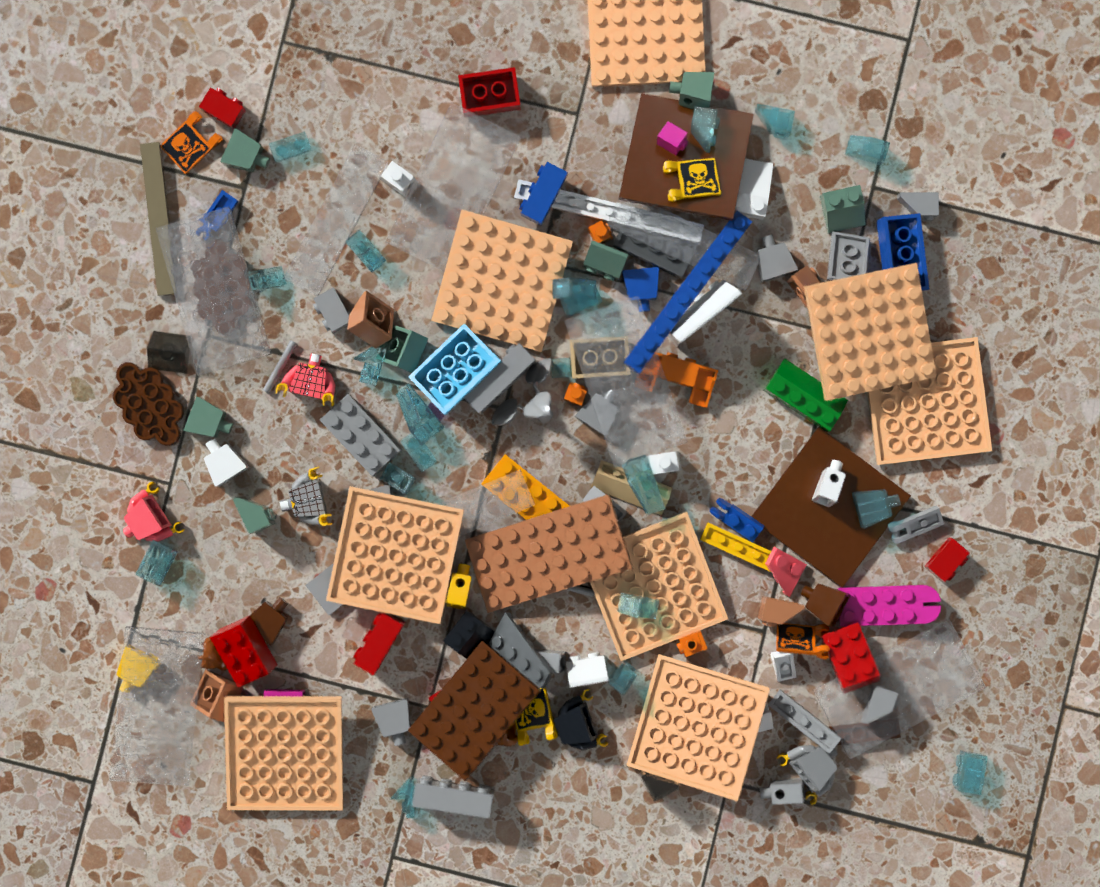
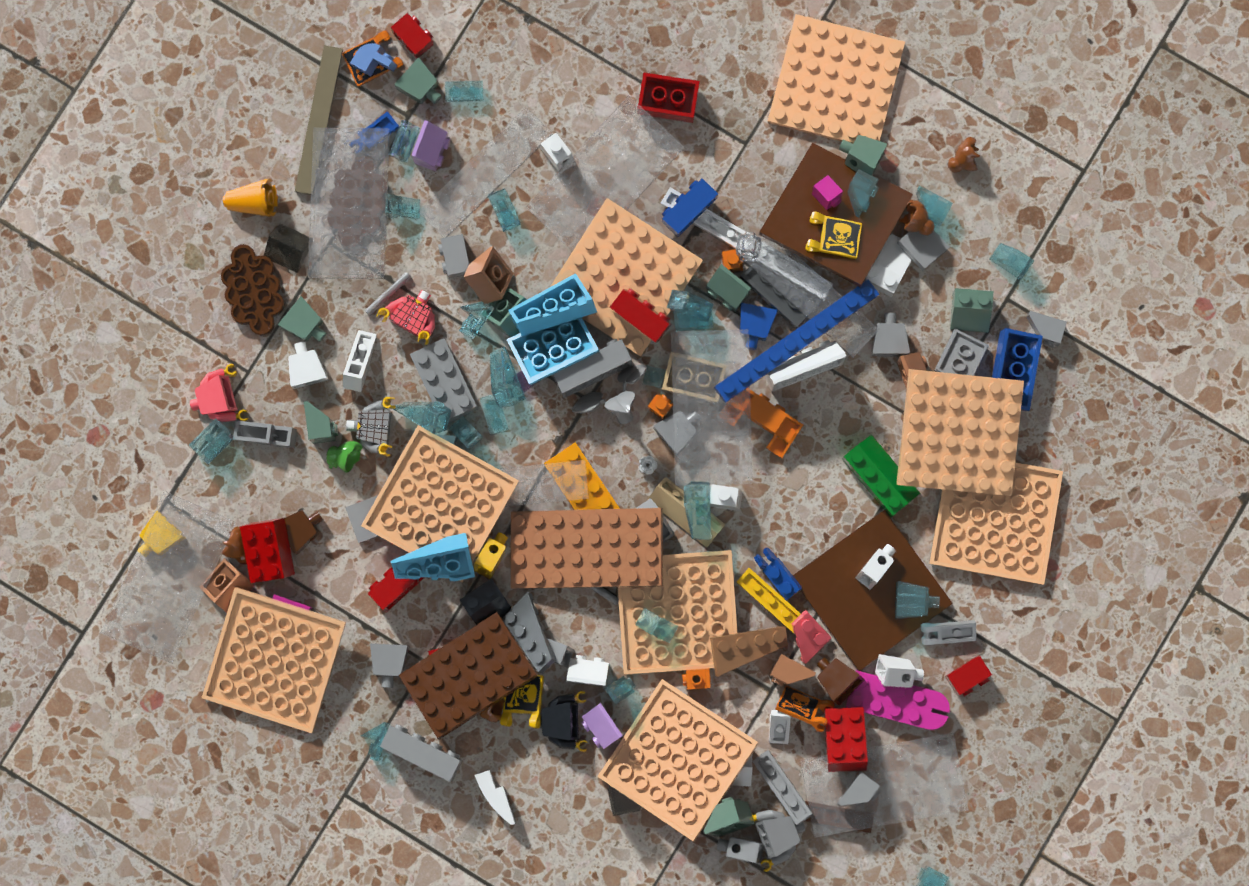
camera: 20 degrees right, 5 degrees down
(120, 315) = (254, 199): none -> light orange cone
(187, 142) = (370, 56): none -> medium blue brick
(205, 539) = (265, 434): none -> light grey slope
(248, 213) = (404, 141): none -> clear light blue plate
(273, 440) = (359, 361): none -> white slope
(275, 211) = (430, 146): none -> lavender slope
(288, 536) = (344, 456): none -> bright green hair
(356, 473) = (429, 415): none -> clear light blue slope
(414, 609) = (440, 559): none -> medium azure wedge
(443, 331) = (553, 306): none -> medium azure wedge
(530, 313) = (641, 314): none -> red brick
(536, 814) = (495, 796): none -> white slope
(584, 458) = (648, 470): none -> white plate
(613, 215) = (748, 247): none -> clear head
(616, 717) = (601, 726): none -> lavender slope
(724, 602) = (744, 647): none -> medium nougat wing
(765, 136) = (917, 219): none -> dark orange piece
(765, 764) = (729, 817): none -> sand green slope
(778, 160) = (923, 248): none -> light grey tile
(792, 62) = (964, 157): none -> dark orange piece
(879, 578) = (897, 671): none -> white torso

